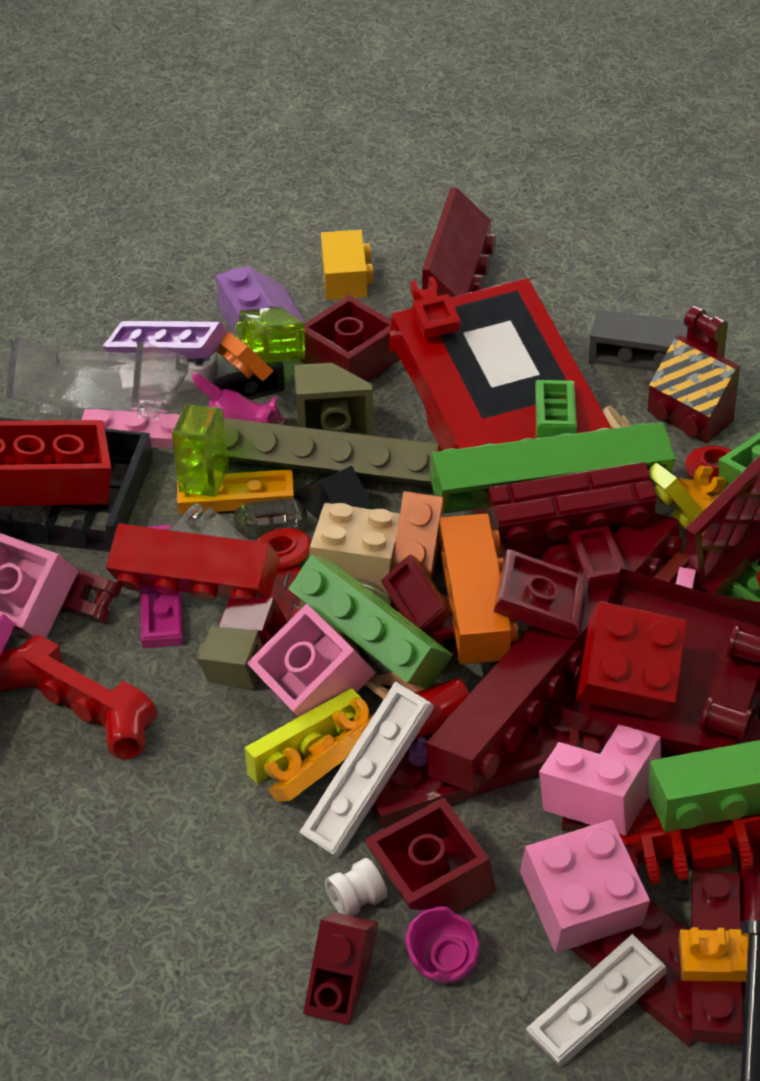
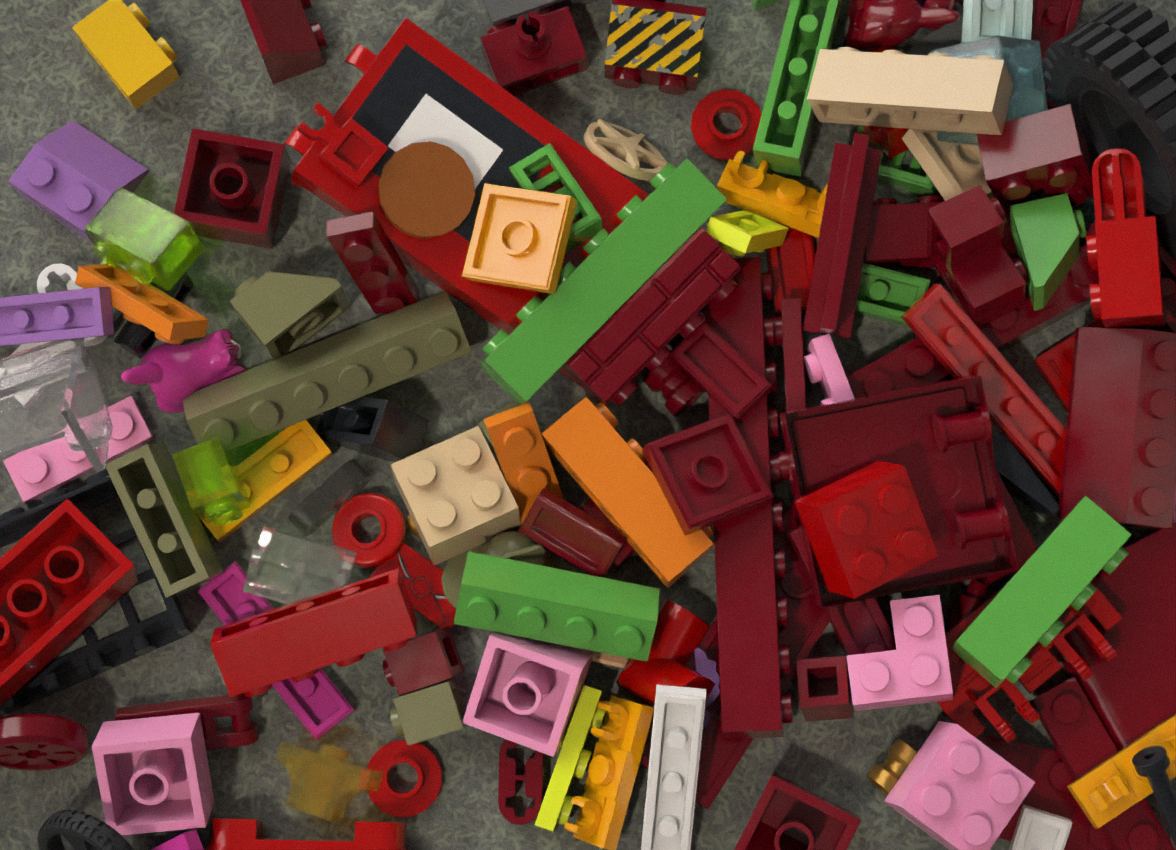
camera: 35 degrees left, 35 degrees up
(126, 656) = (324, 779): none -> clear yellow brick
(150, 469) = (164, 519): none -> olive brick
(183, 706) = (426, 788): none -> red piece
(256, 728) = (507, 784): none -> dark red beam
(404, 390) = (372, 262): none -> dark red plate
(469, 362) = (426, 190): none -> dark orange tile
(510, 409) = (519, 238): none -> light orange tile
(521, 785) = (824, 689): none -> dark red brick
(611, 368) = (534, 50): none -> dark red brick

